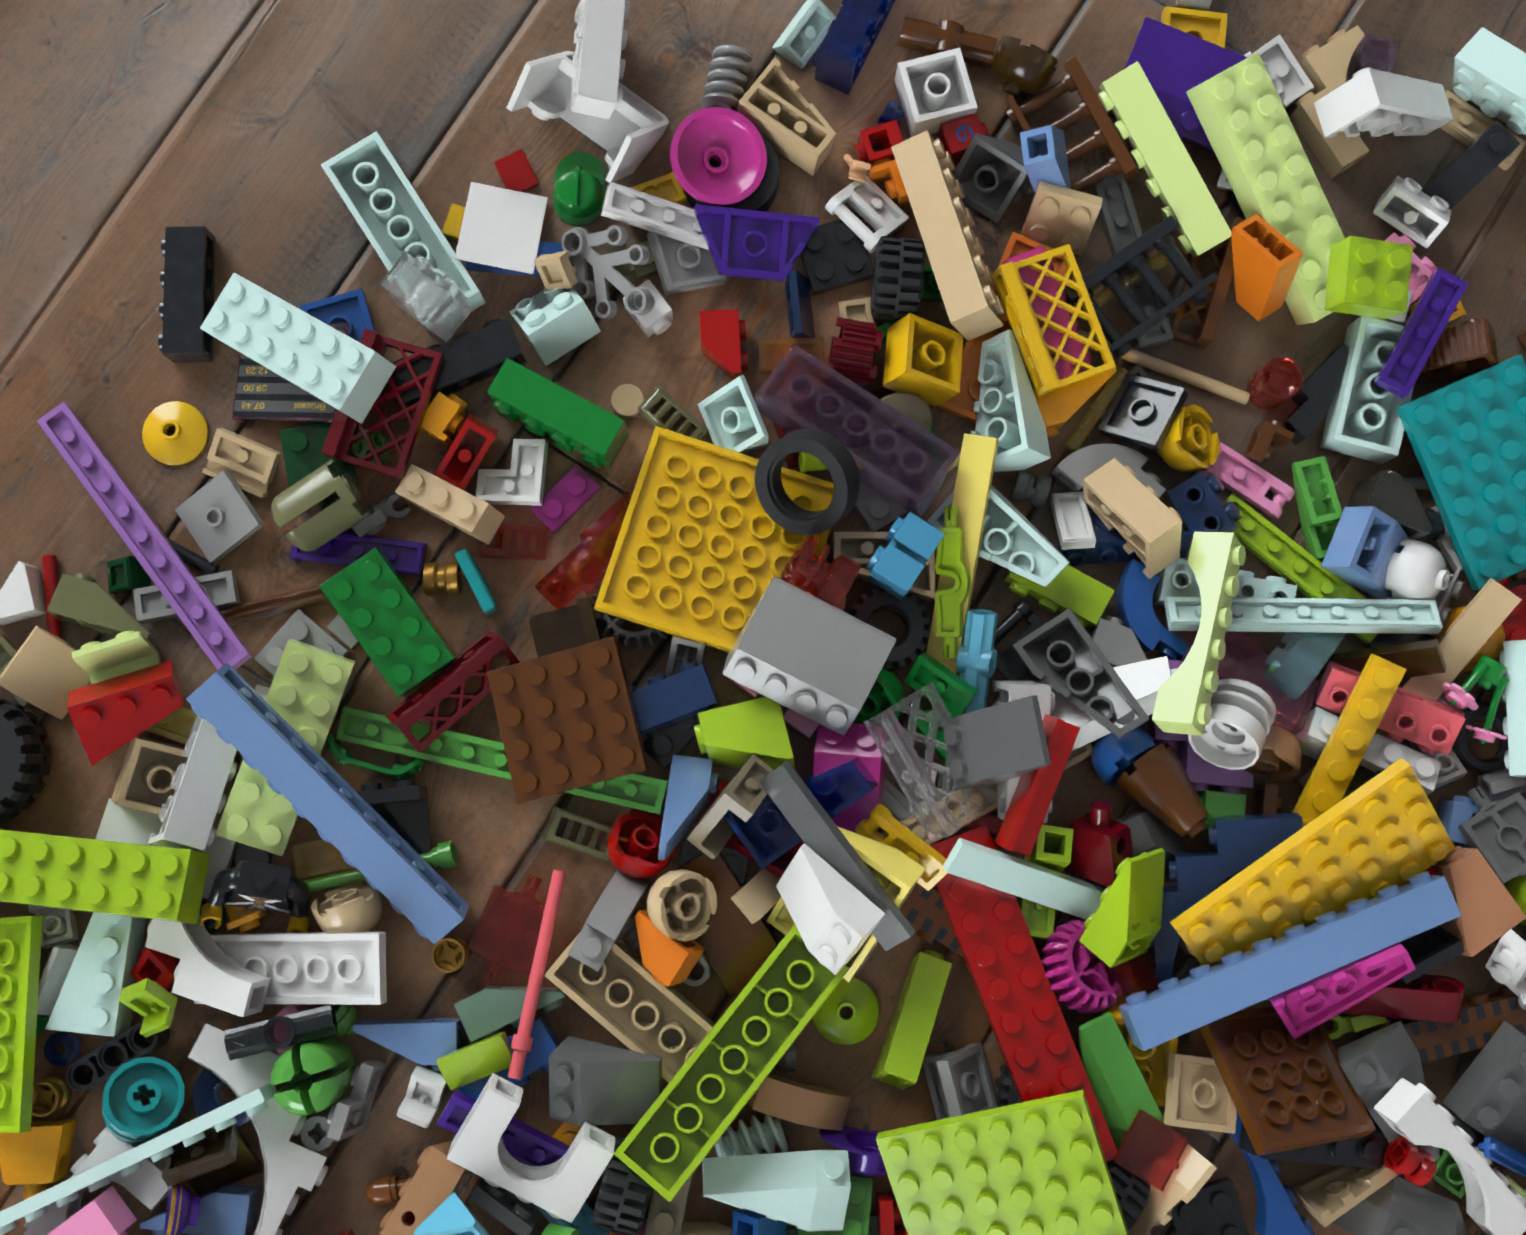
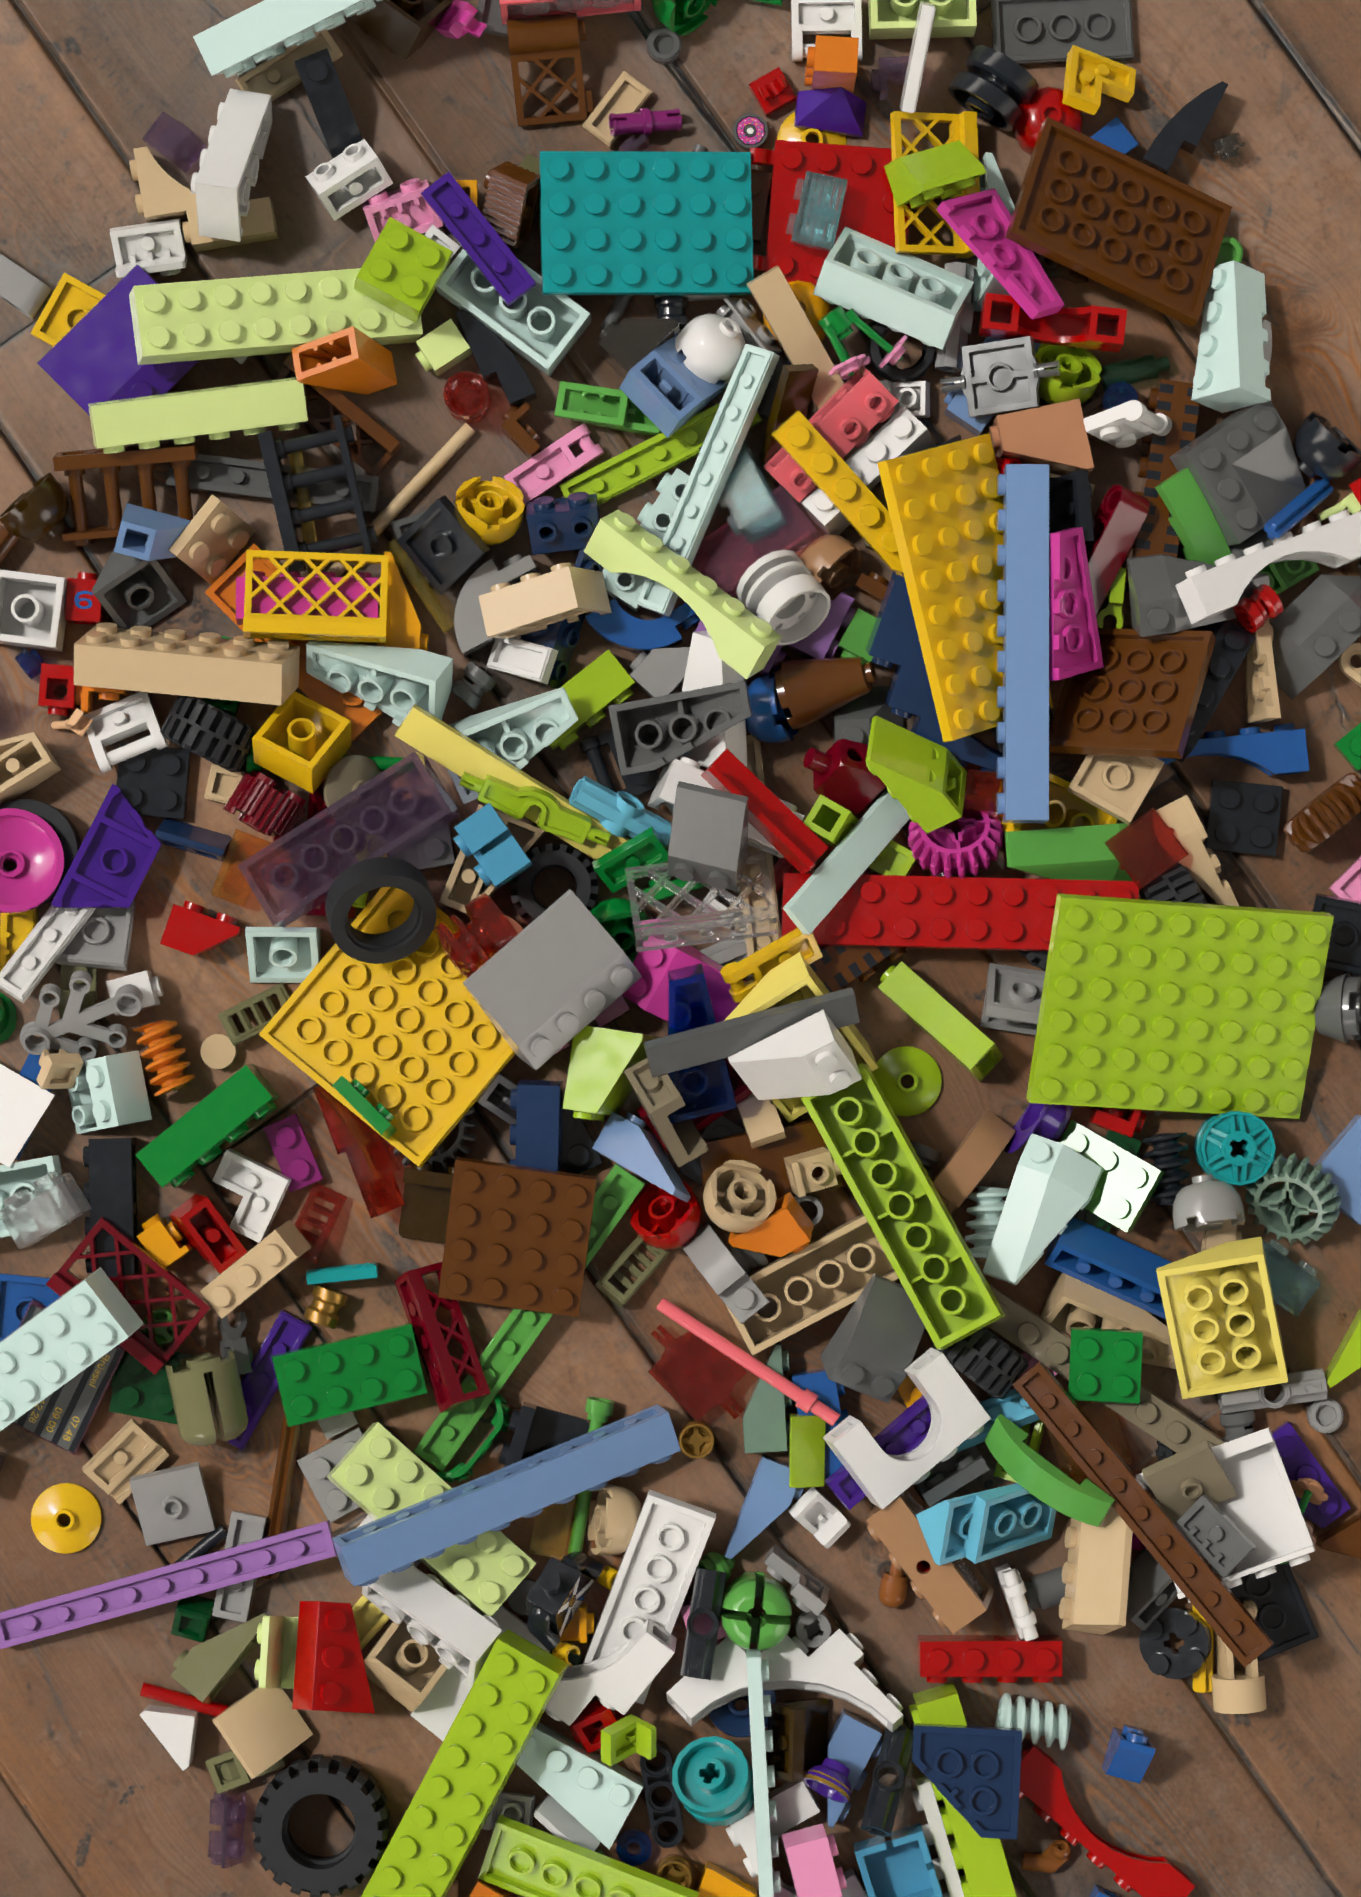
camera: 60 degrees left, 5 degrees up
(604, 354) = (164, 1056): none -> orange piece
(624, 552) = (356, 1095): none -> green plate
(731, 949) = (800, 1169): none -> tan brick
(1305, 346) = (442, 348): none -> yellowish green brick
(1463, 1065) = (1192, 518): none -> bright green slope

